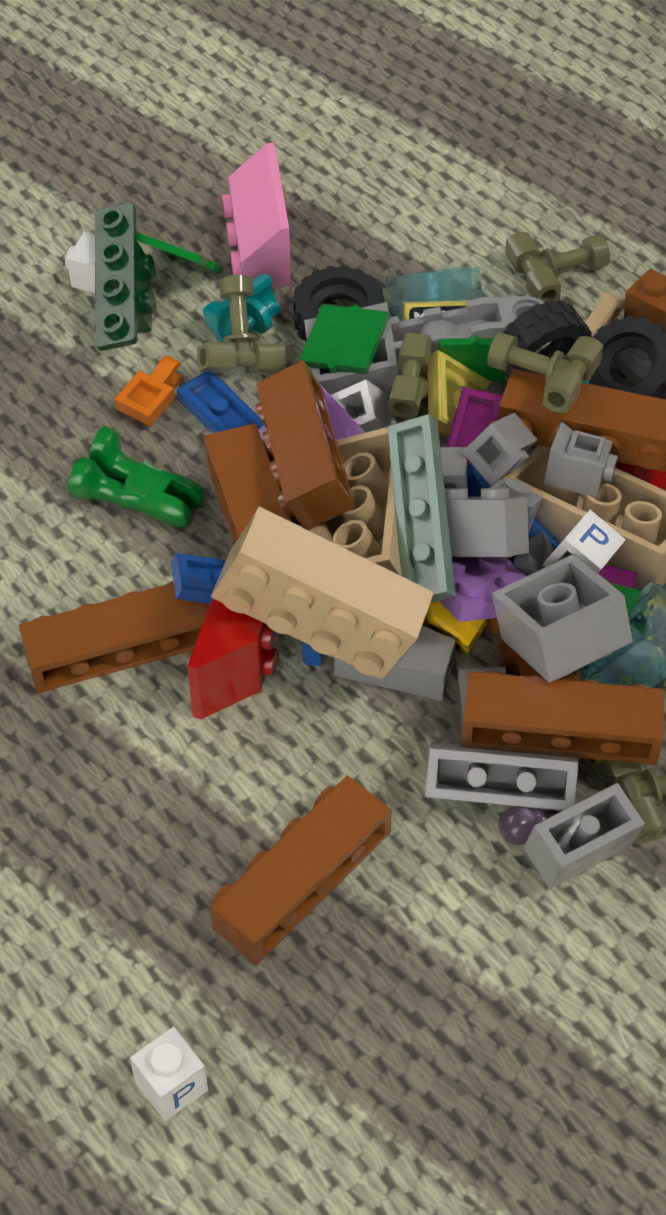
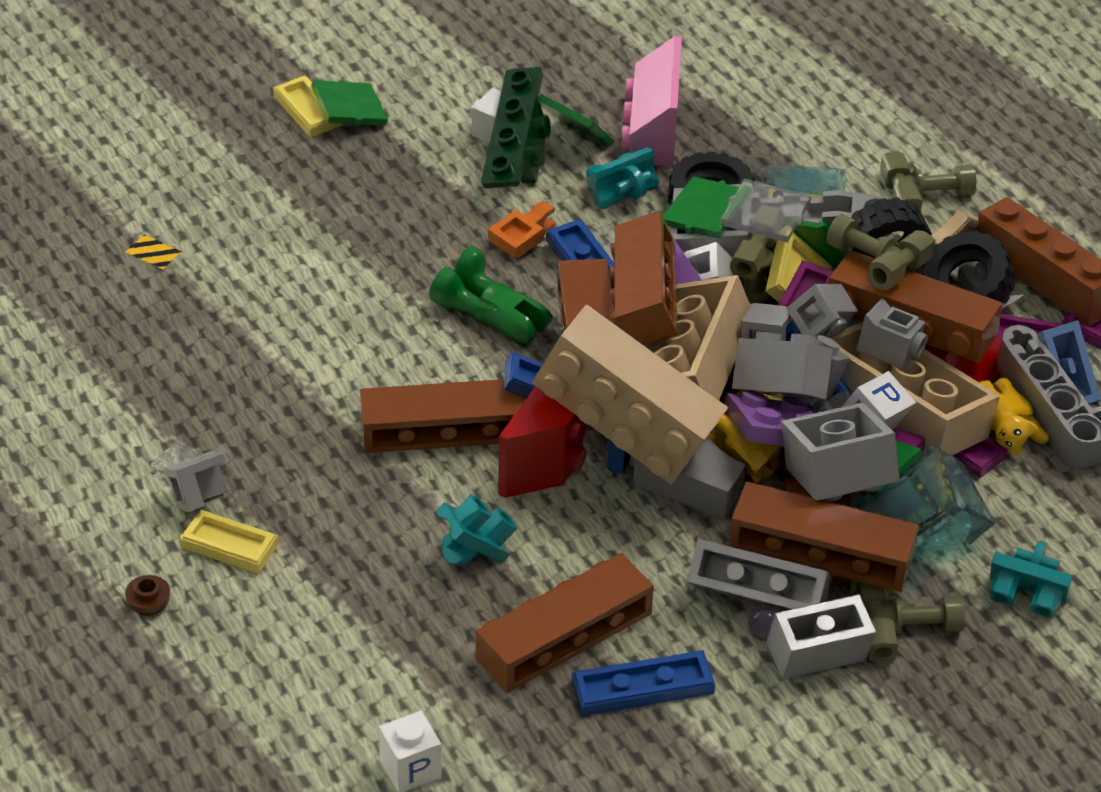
camera: 10 degrees right, 10 degrees down
(181, 777) = (475, 531): none -> teal hips
(240, 347) = (610, 203): olive bar -> none
(401, 924) = (642, 682): none -> blue tile
(412, 336) = (765, 210): none -> clear piece
(421, 505) = (735, 339): sand green plate -> none

